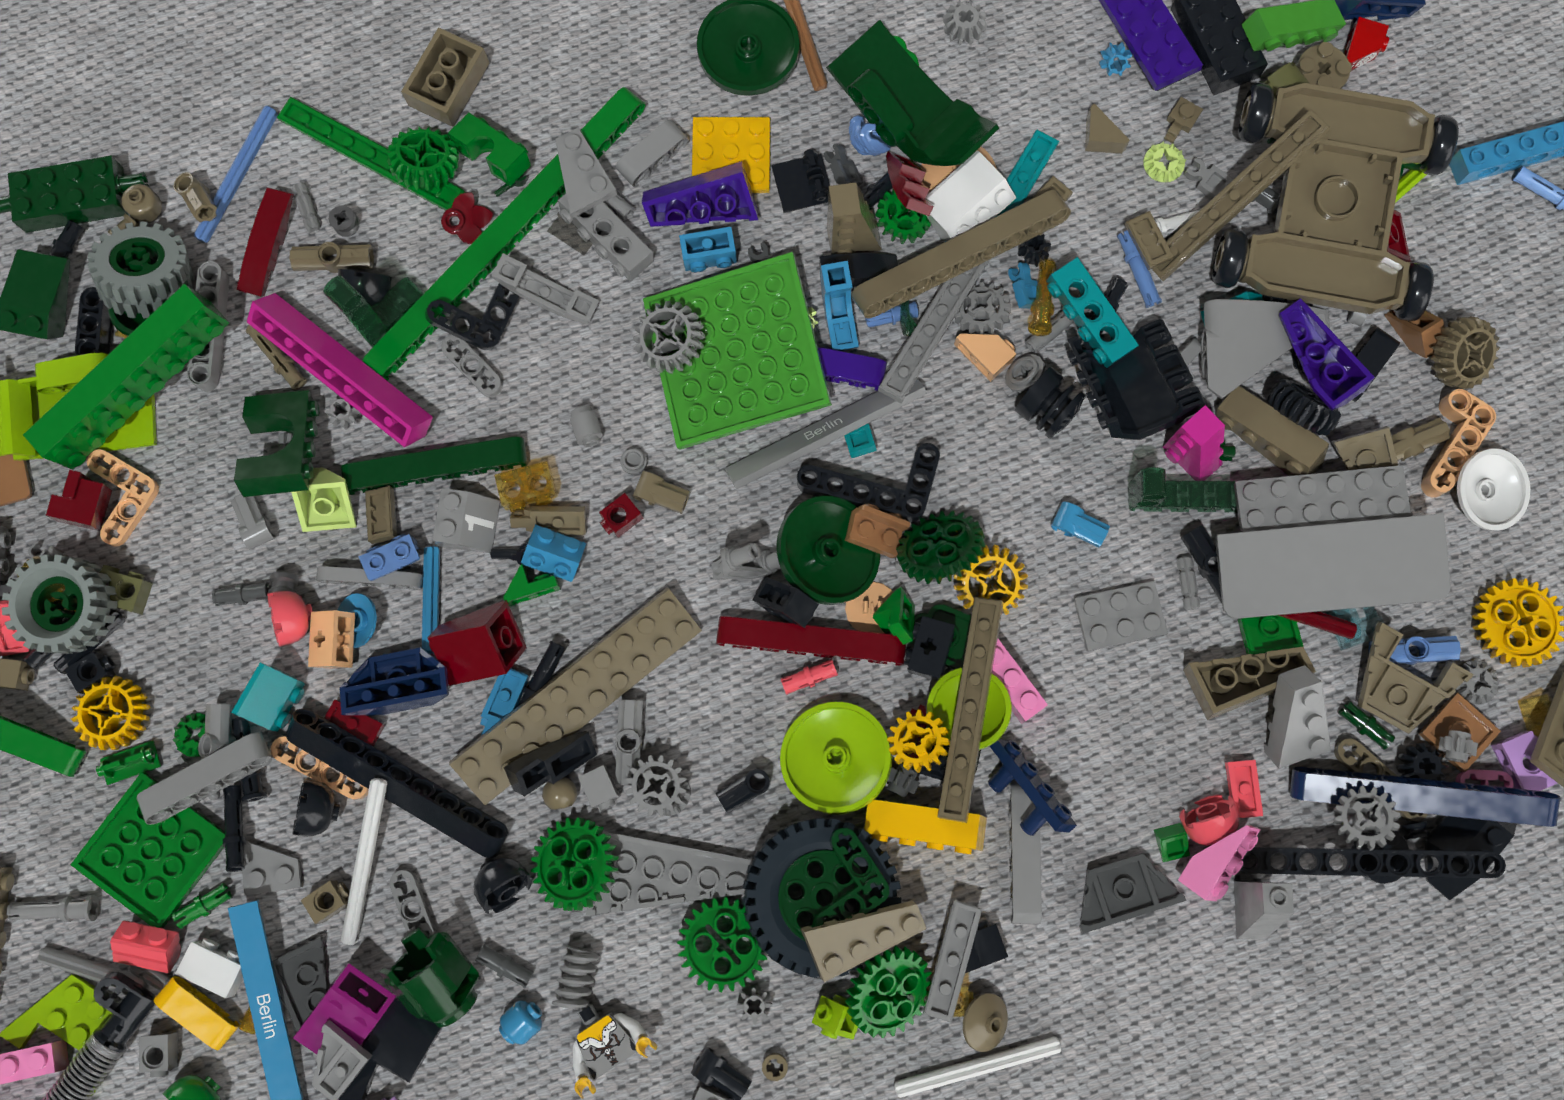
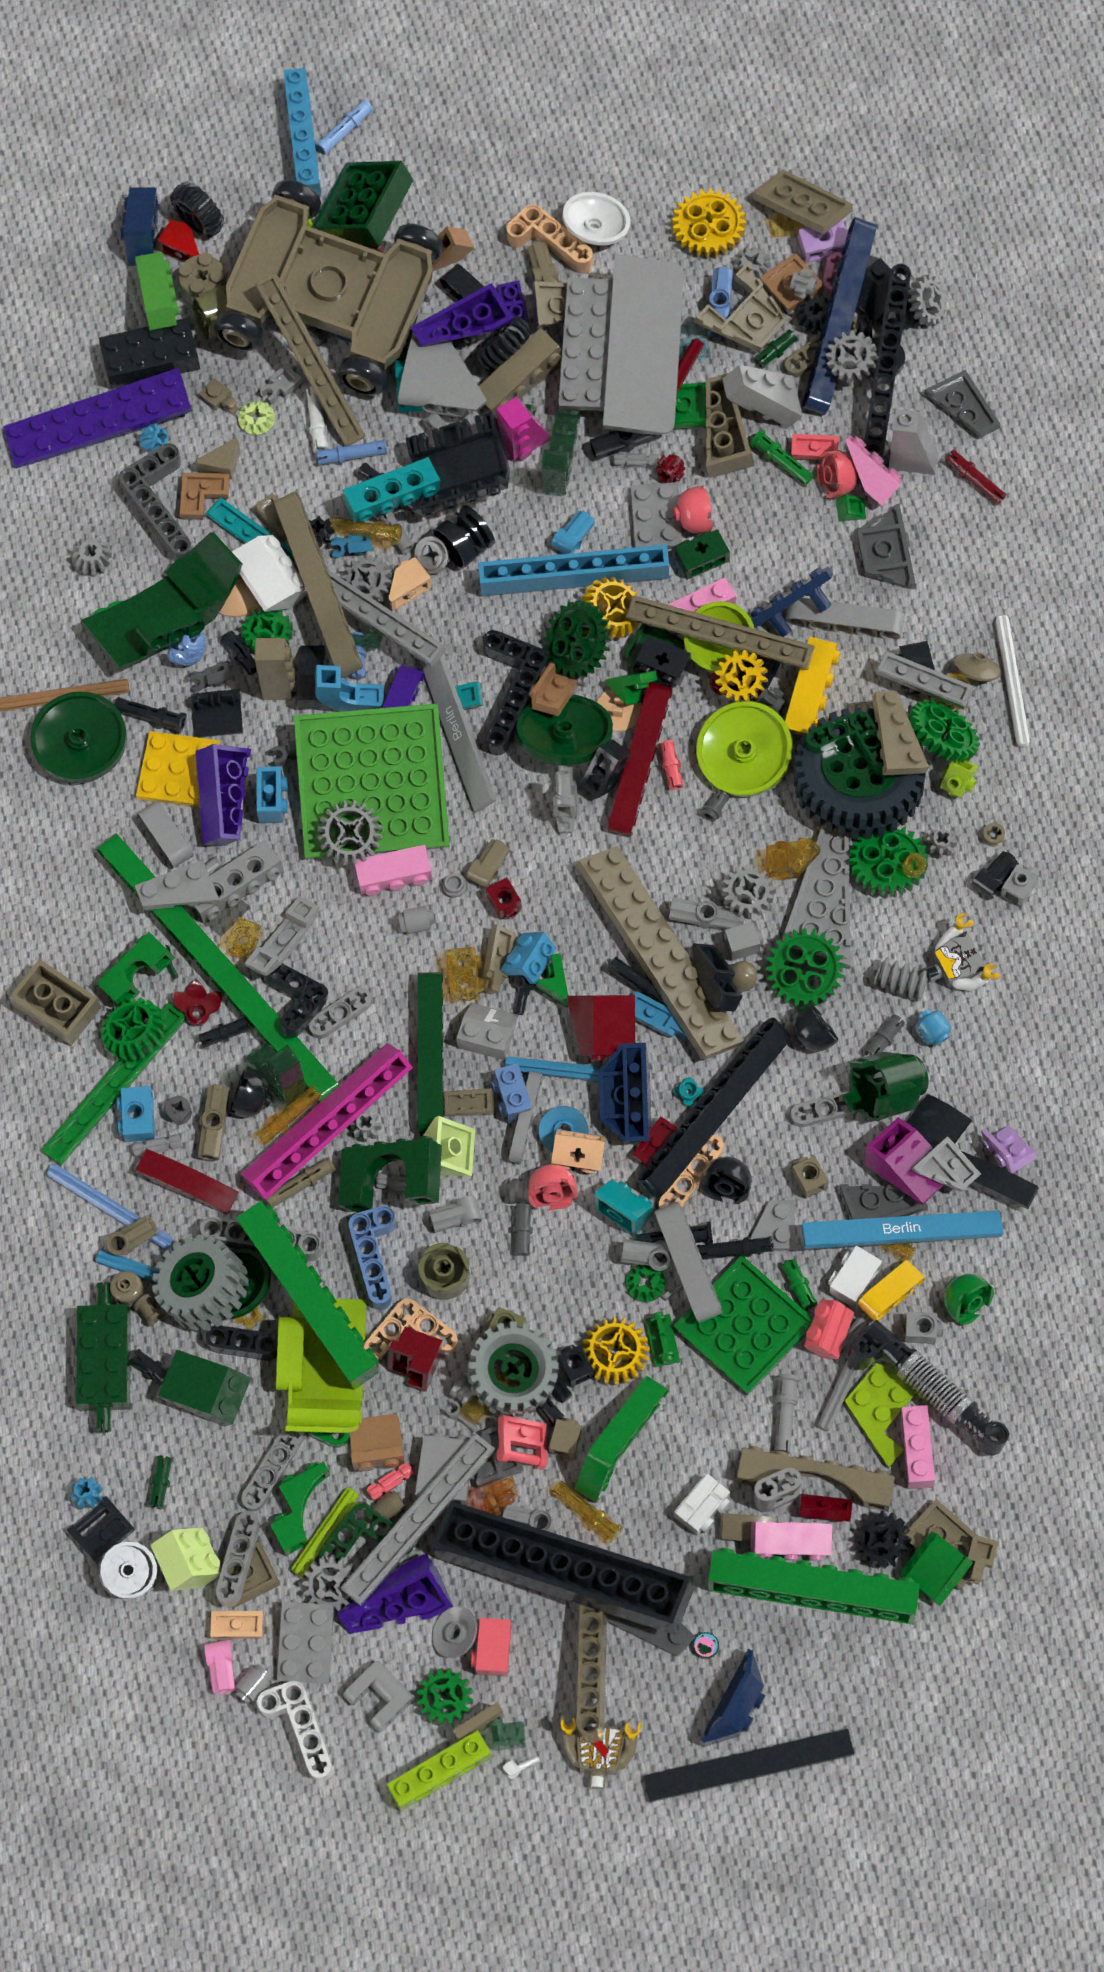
camera: 80 degrees left, 10 degrees down
(172, 205) = (124, 1264): none -> dark azure axle
(183, 531) = (452, 1260): none -> olive brick
(193, 444) = (373, 1260): none -> medium blue beam
(338, 325) = (289, 1114): none -> clear yellow pin
(349, 184) = (133, 1100): none -> dark azure brick
(363, 861) = (779, 1137): white axle -> none
(411, 751) = (688, 1084): none -> teal plate
(434, 249) = (223, 1032): none -> black pin
(547, 262) = (248, 929): none -> clear yellow brick
(638, 393) = (393, 870): none -> bright pink brick
(704, 827) = (790, 859): none -> clear yellow slope
(717, 982) = (920, 862): none -> clear yellow bush
(741, 791) = (760, 828): black piece -> none
(766, 734) = (713, 809): none -> dark grey pin
(787, 124) = (160, 716): none -> black pin
(907, 183) = (241, 617): dark red slope -> none
(1031, 532) = (573, 570): none -> dark azure brick
(1036, 72) = (153, 505): none -> dark grey beam
(1065, 115) = (197, 488): none -> medium nougat plate
(1080, 689) = (702, 554): none -> dark green brick
(1129, 656) = (694, 510): none -> coral cylinder
(1148, 240) = (331, 437): dark tan plate -> none
(1182, 623) = (670, 468): none -> dark red gear
(1229, 740) = (773, 451): none -> green pin
(1241, 989) = (968, 471): none -> dark red pin
(1338, 965) = (965, 403): none -> dark grey wing
(1365, 414) = (513, 299): none -> dark purple slope
(1406, 50) = (197, 209): none -> black gear
(1457, 229) = (365, 201): none -> dark green slope
(1465, 352) = (476, 216): dark tan gear -> none
(1468, 903) = (928, 300): none -> light grey gear

